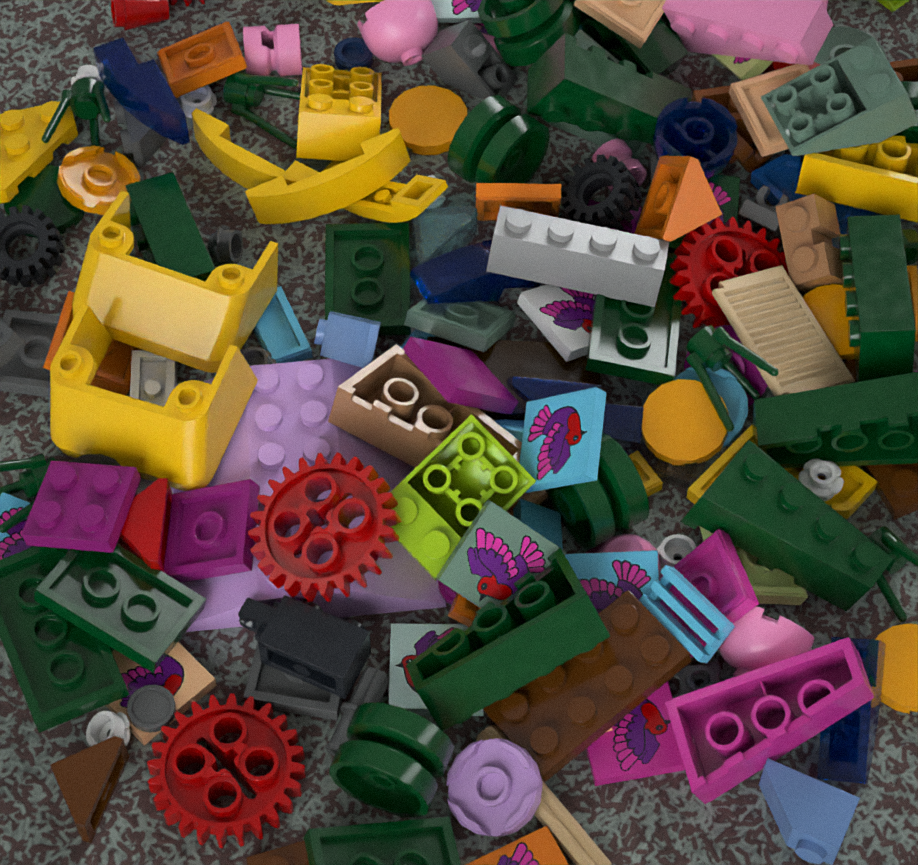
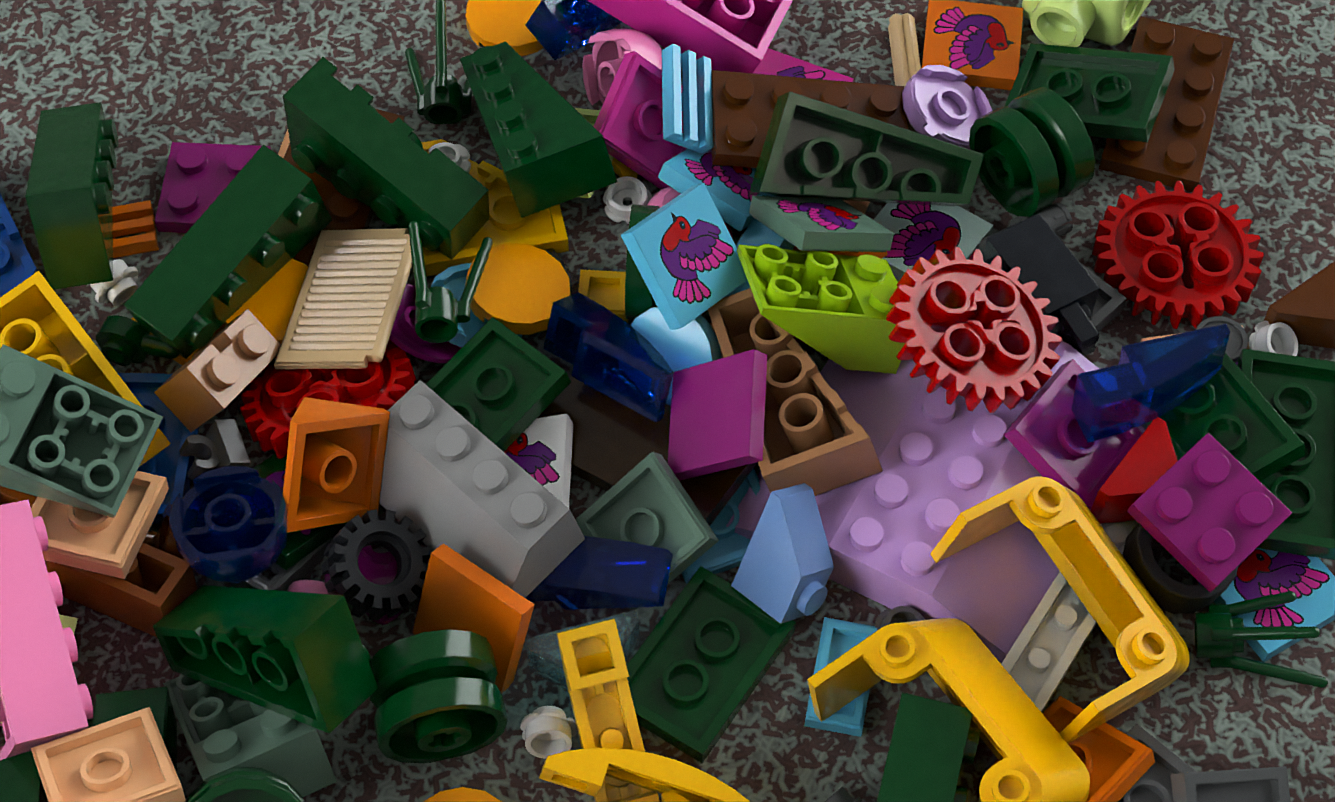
camera: 145 degrees left, 0 degrees up
(174, 561) = (1147, 381): none -> clear blue slope

